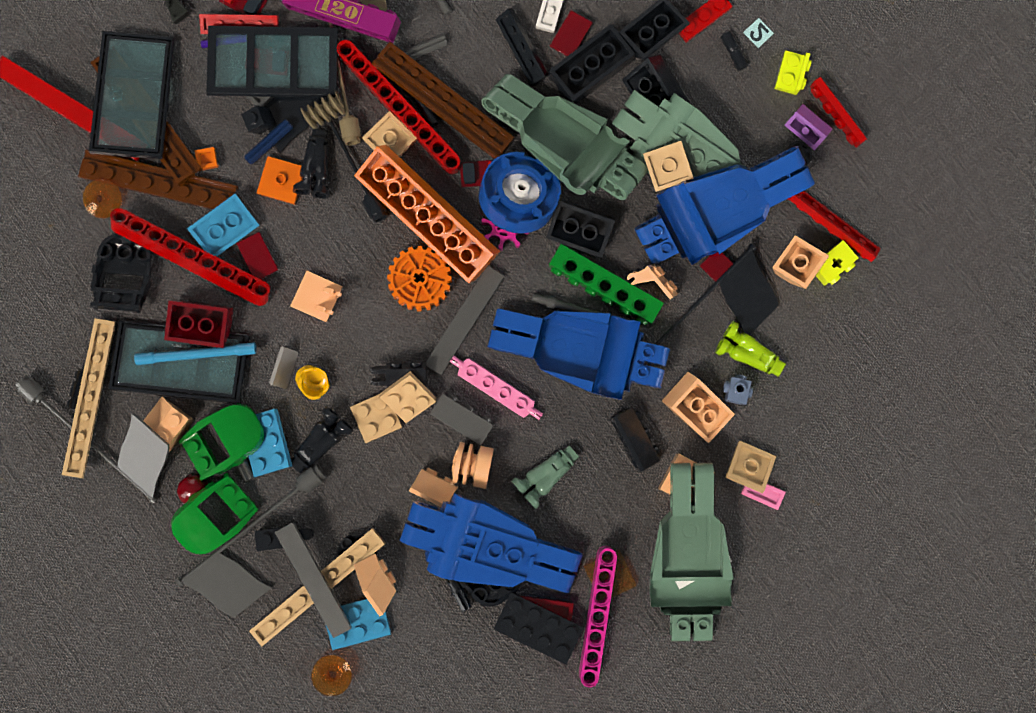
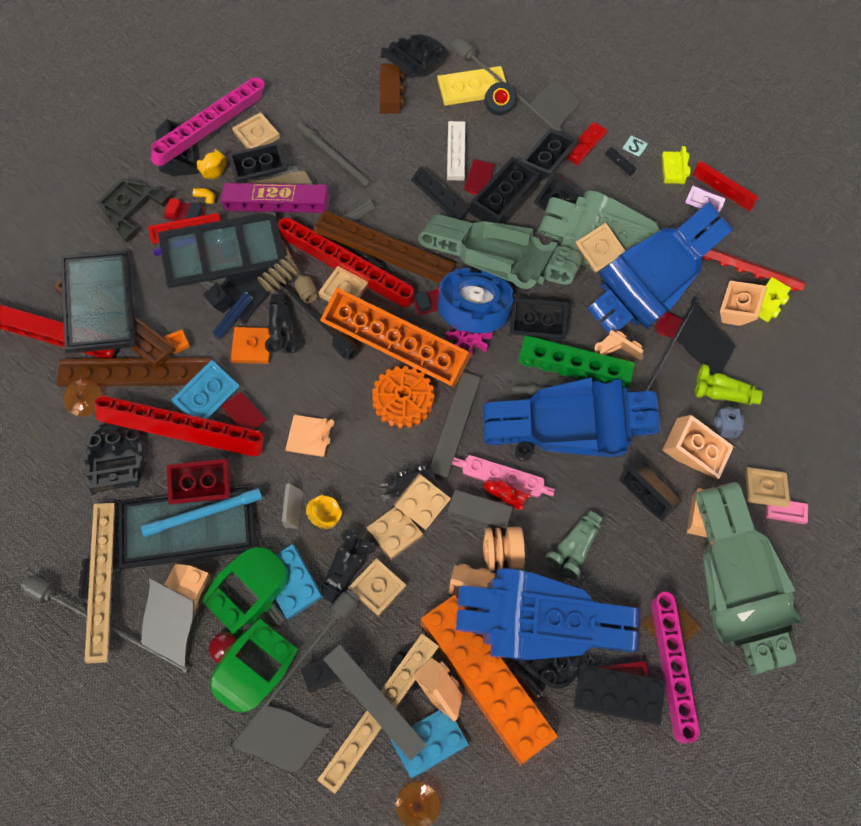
camera: 15 degrees left, 20 degrees down
(345, 468) = (377, 587): none -> tan plate
(425, 592) = (489, 684): none -> orange brick
(492, 409) = (506, 493): none -> red animal
(526, 372) = (527, 456): none -> black bush

